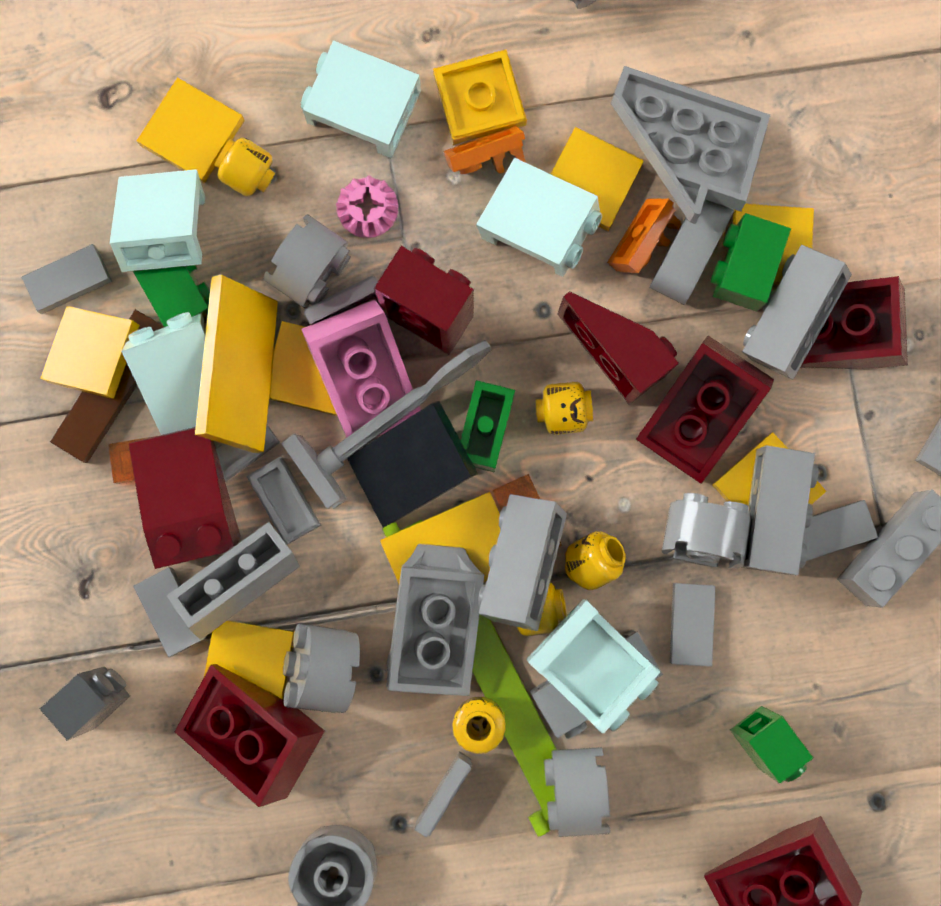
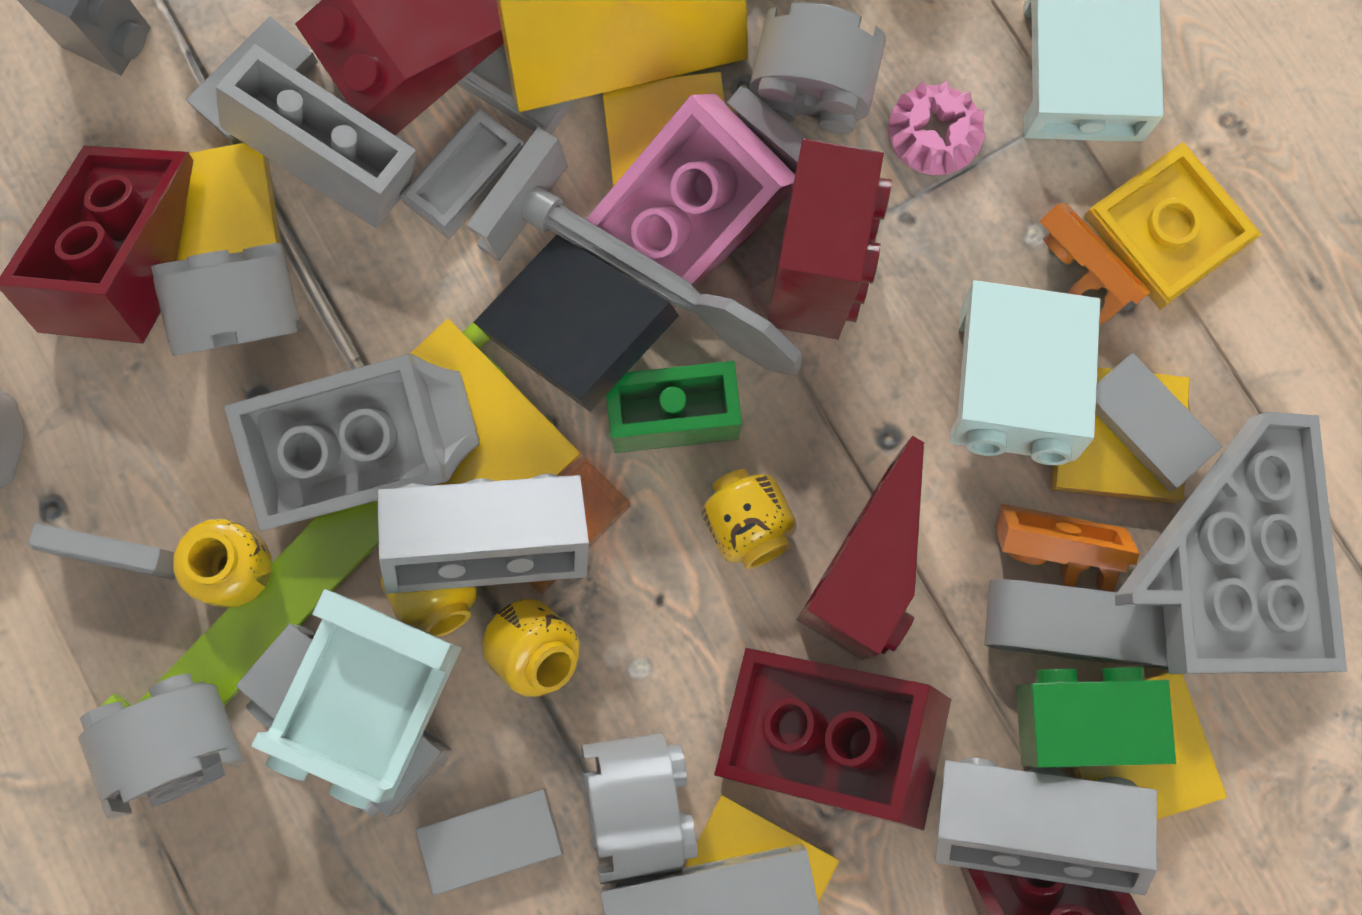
camera: 70 degrees right, 5 degrees down
(595, 158) = (1153, 423): none -> light grey tile

